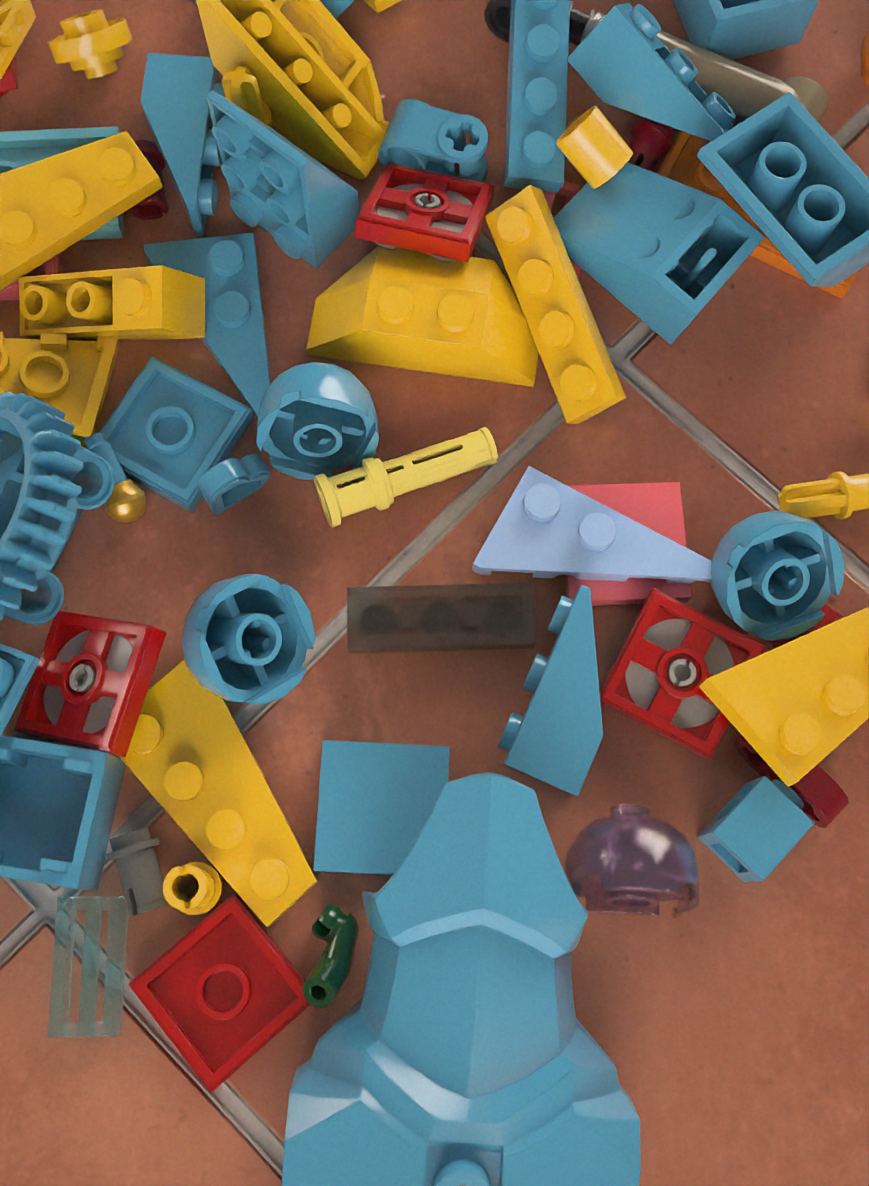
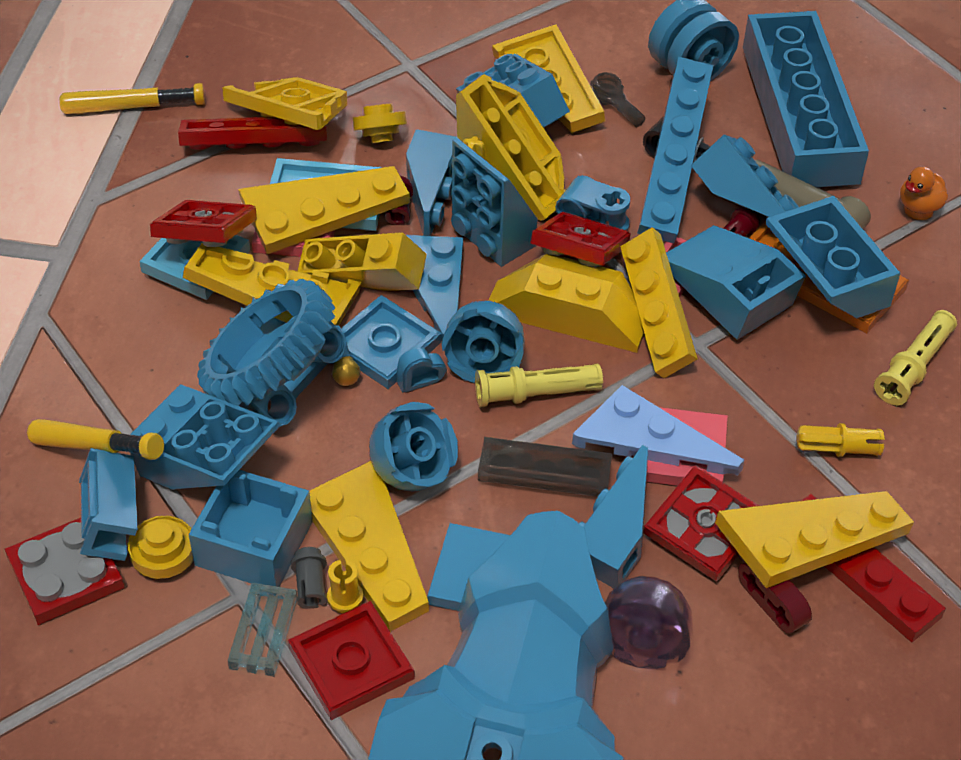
camera: 15 degrees right, 25 degrees down
(91, 682) = (308, 455): red piece -> none
(335, 961) = (437, 639): dark green arm -> none
(594, 147) = (698, 212): yellow piece -> none
(757, 828) = (742, 620): dark azure brick -> none
(776, 574) = (781, 465): dark azure cylinder -> none

